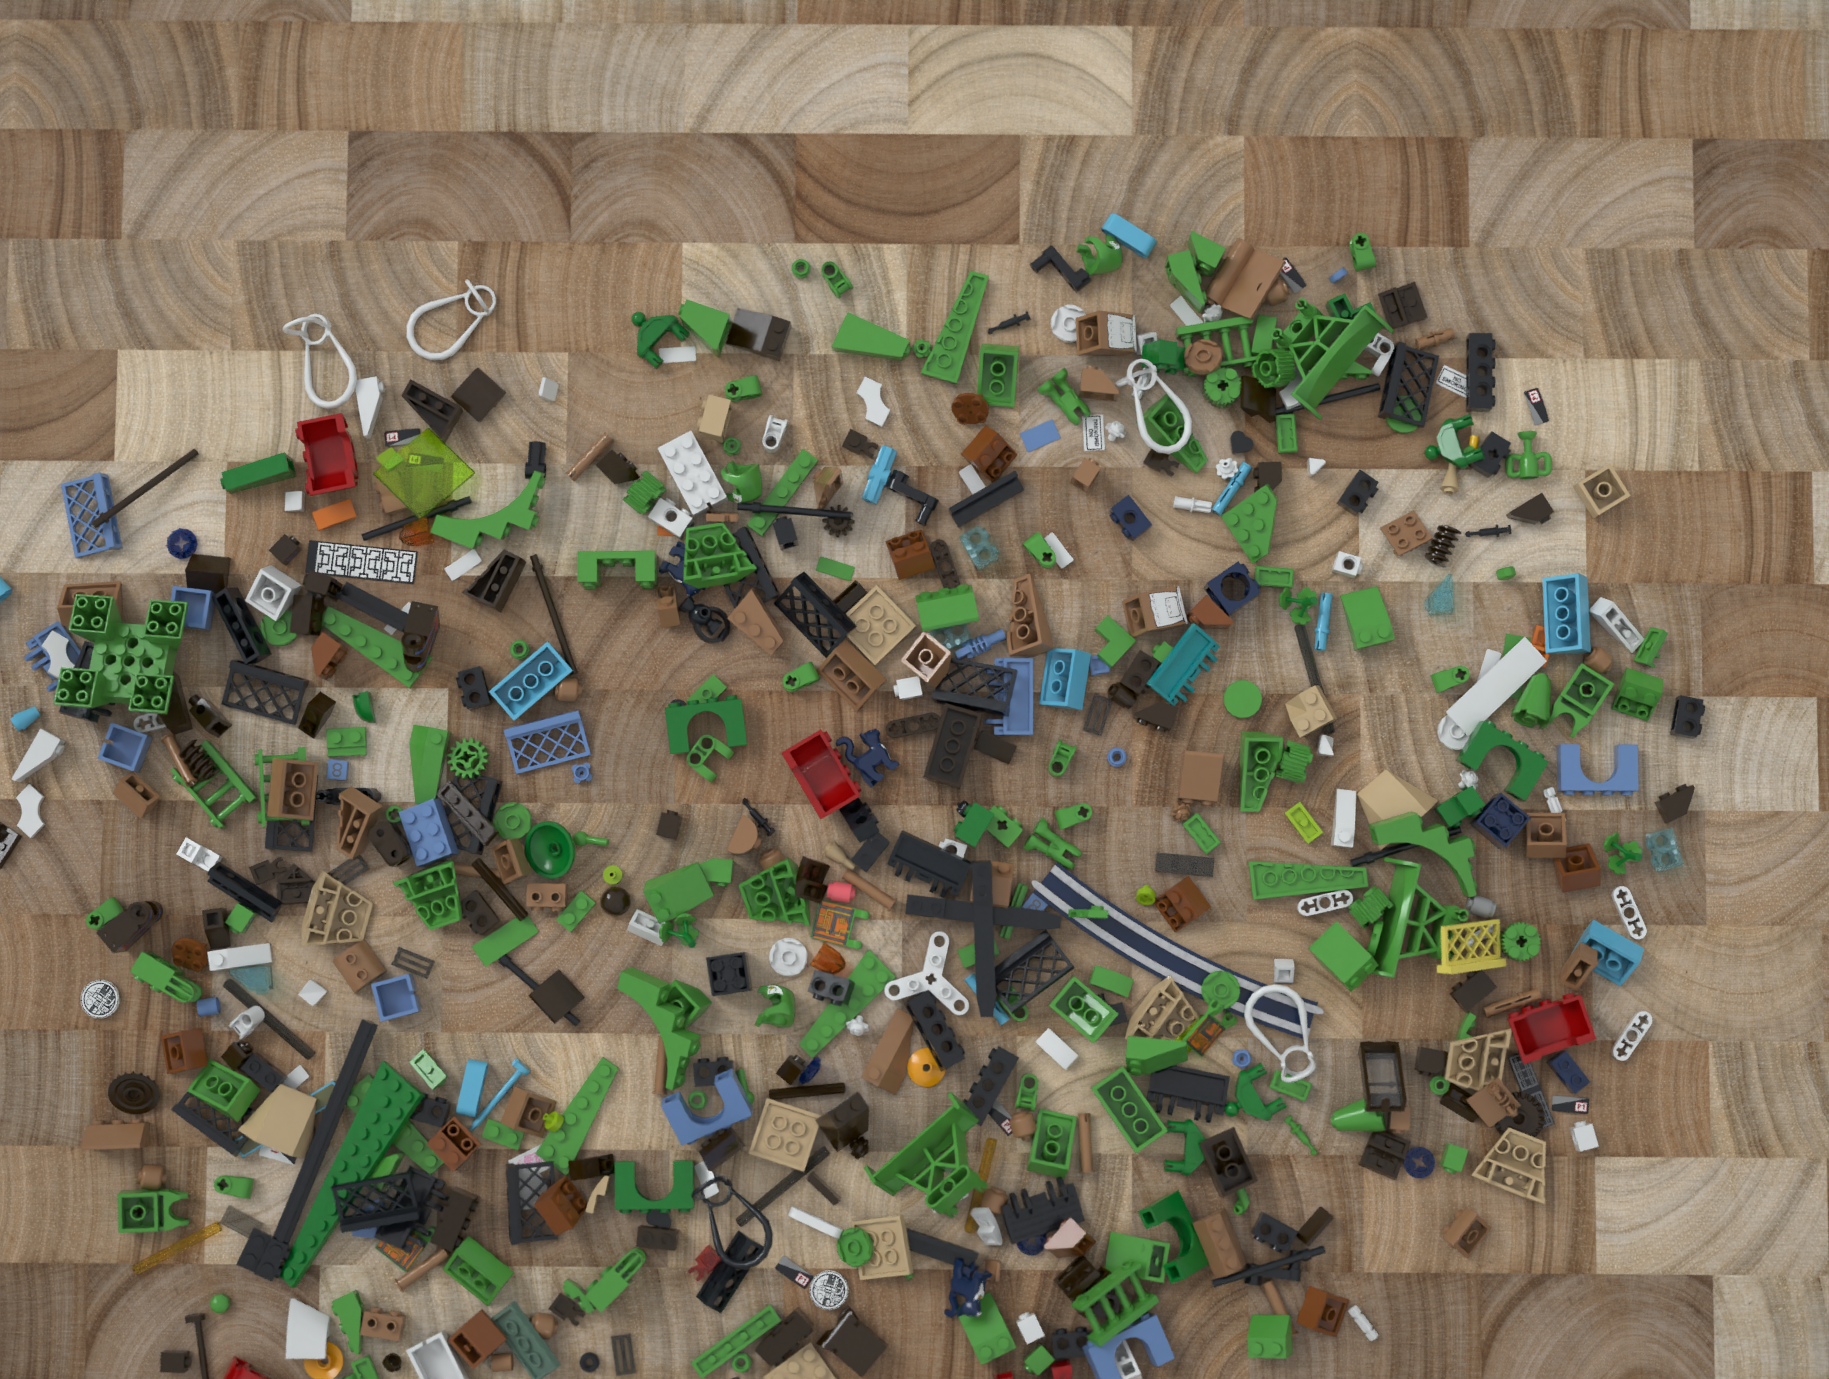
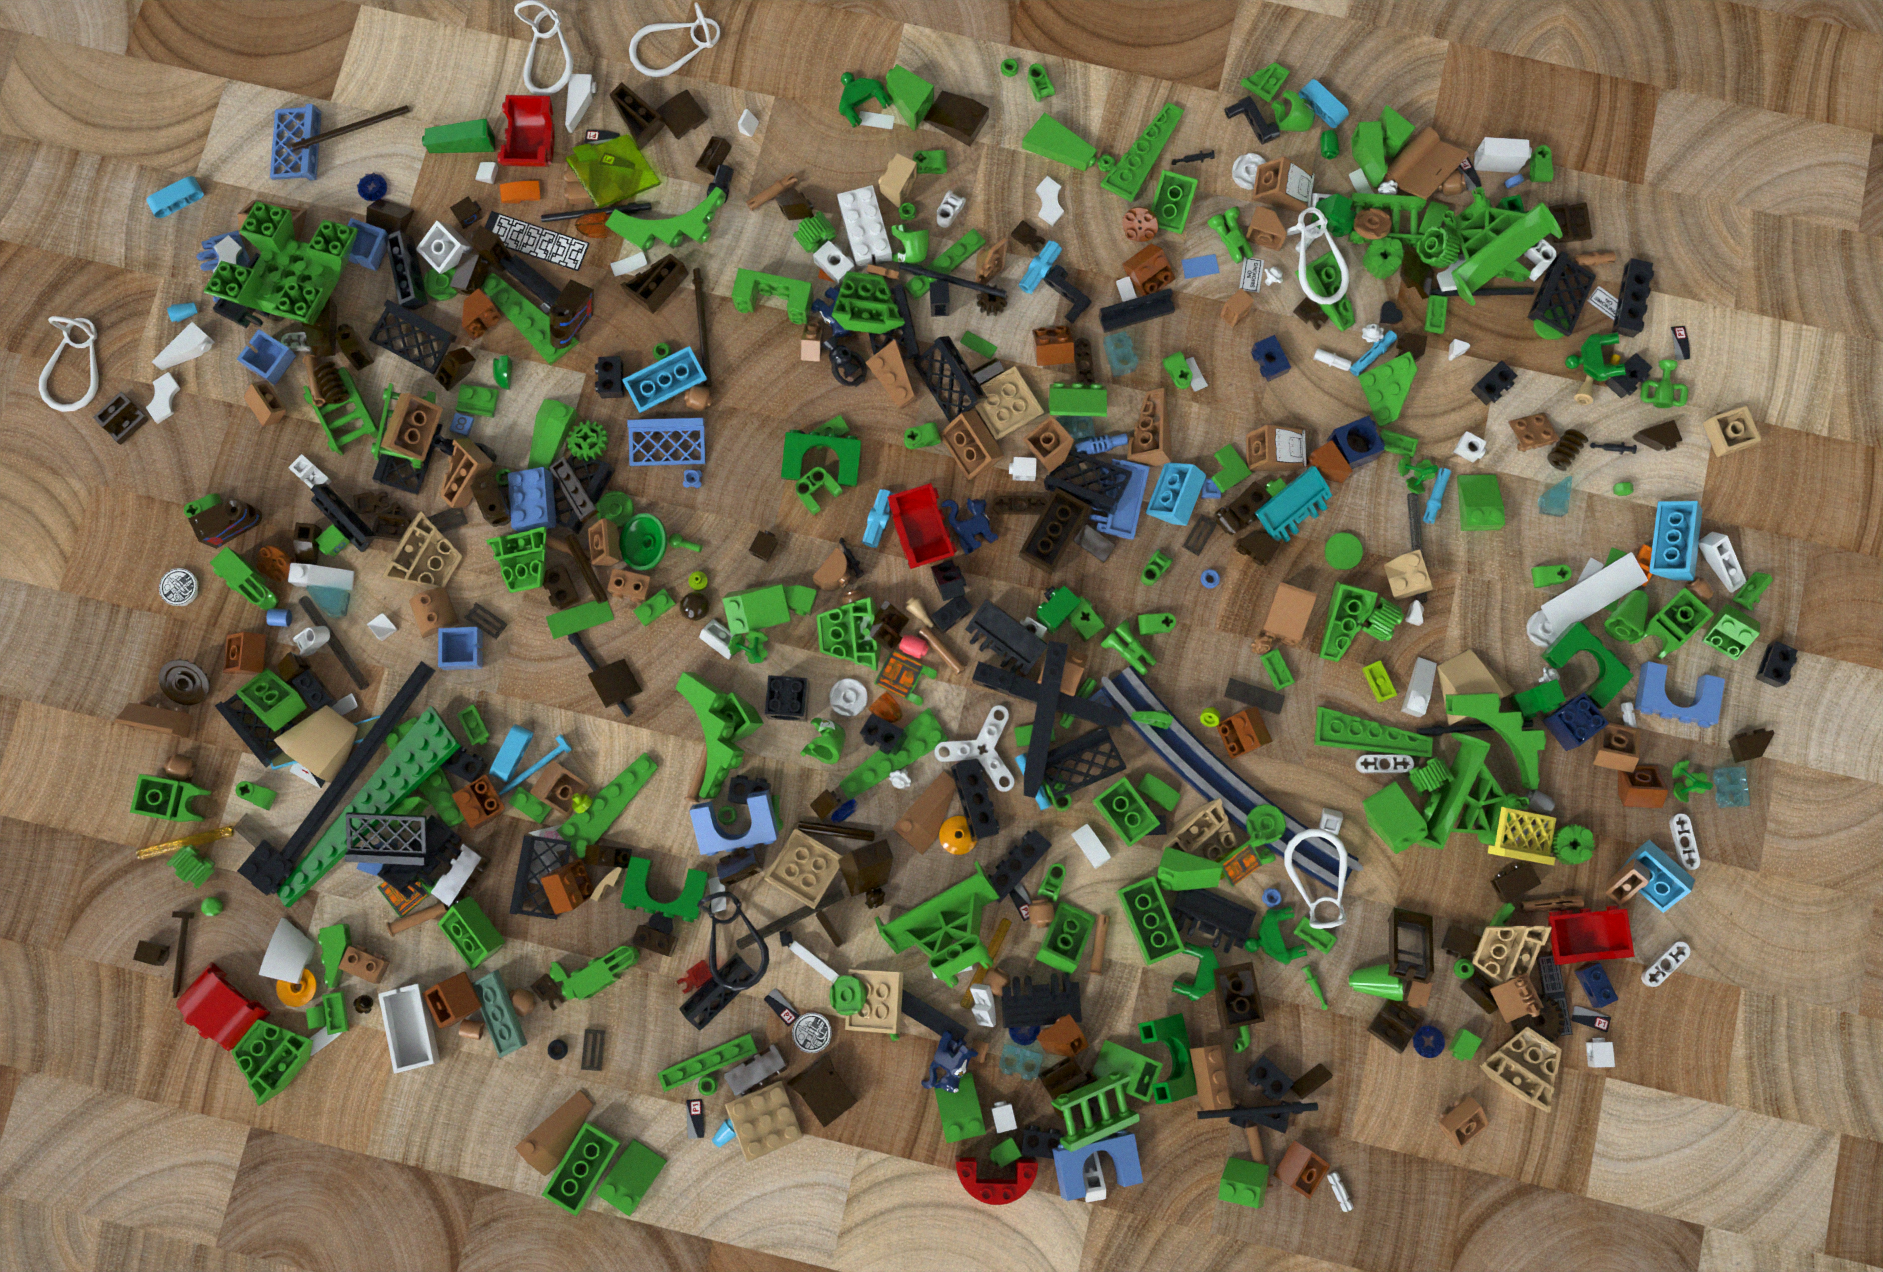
camera: 10 degrees right, 5 degrees down
(191, 1269) = (191, 865): none -> bright green brick
(521, 431) = (713, 155): none -> dark brown slope
(776, 772) = (877, 519): none -> medium azure piece
(782, 1205) = (785, 938): none -> black plate
(1034, 1266) = (1021, 1056): none -> clear light blue brick
(1066, 224) = (1266, 81): none -> bright green wing
(1143, 278) = (1329, 144): none -> green brick
(1319, 252) = (1502, 155): none -> white brick

